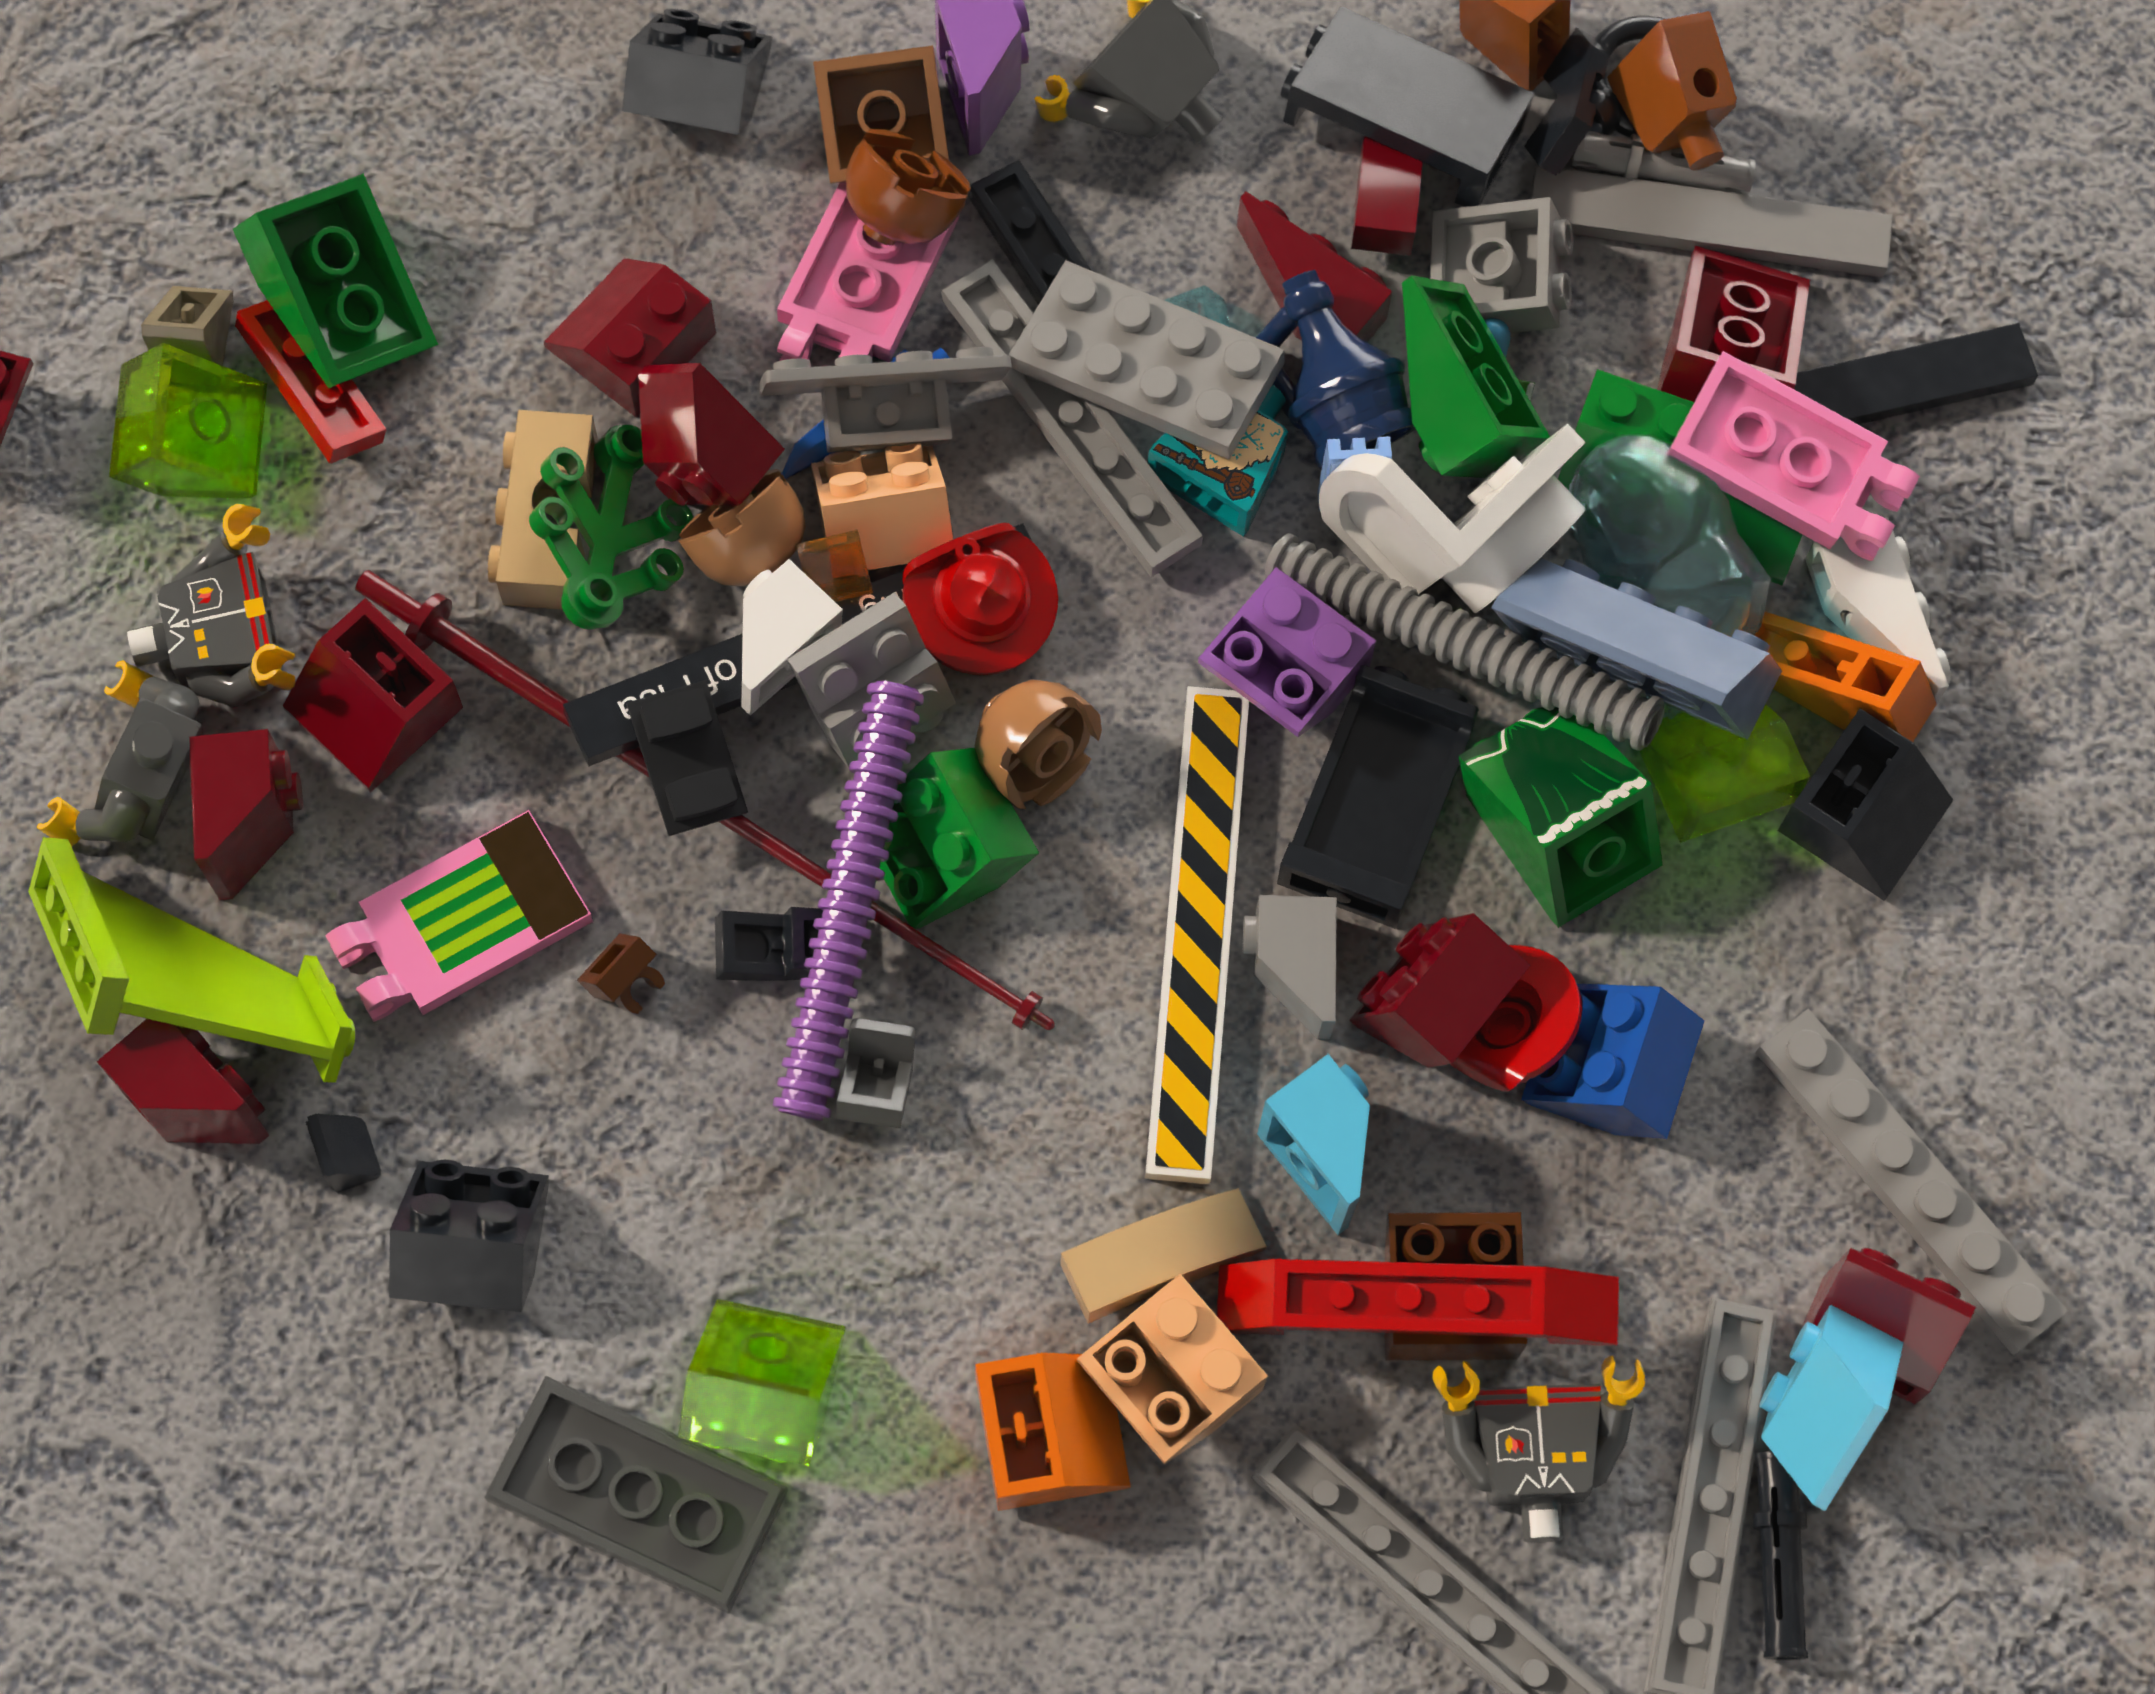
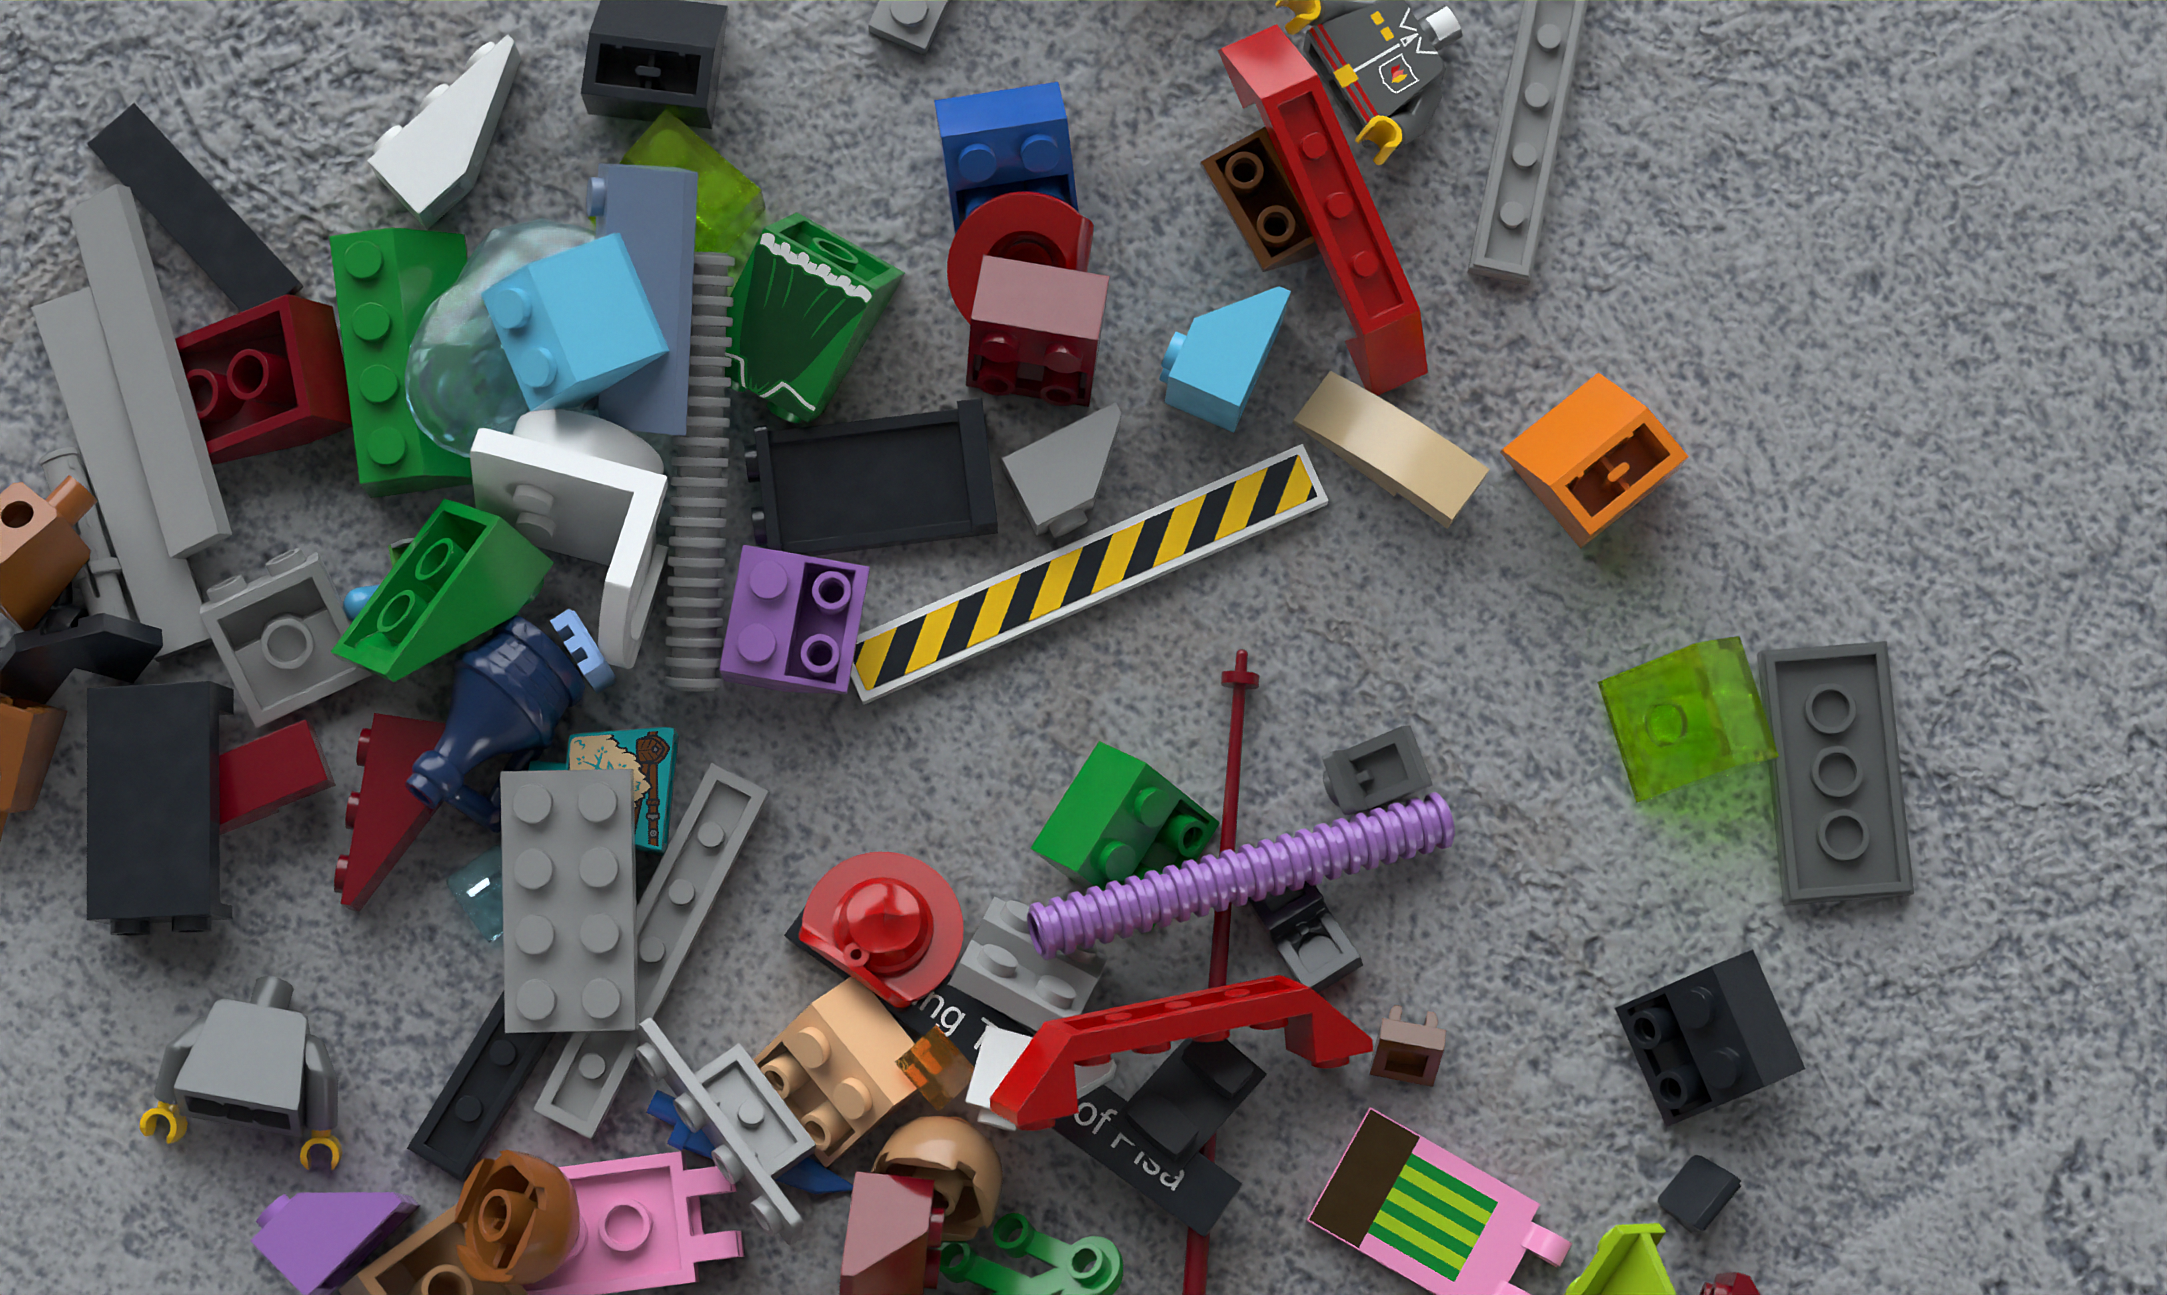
camera: 120 degrees left, 10 degrees up
(759, 734) = (1044, 1076): none -> red slope
(1035, 740) = (996, 806): medium nougat cylinder -> none
(1174, 1370) = (1493, 382): light nougat slope -> none
(1640, 562) = (574, 323): none -> medium azure slope
(1787, 272) = (150, 372): none -> light grey tile
(1792, 458) = (367, 265): bright pink tile -> none
(1842, 675) = (543, 132): orange slope -> none

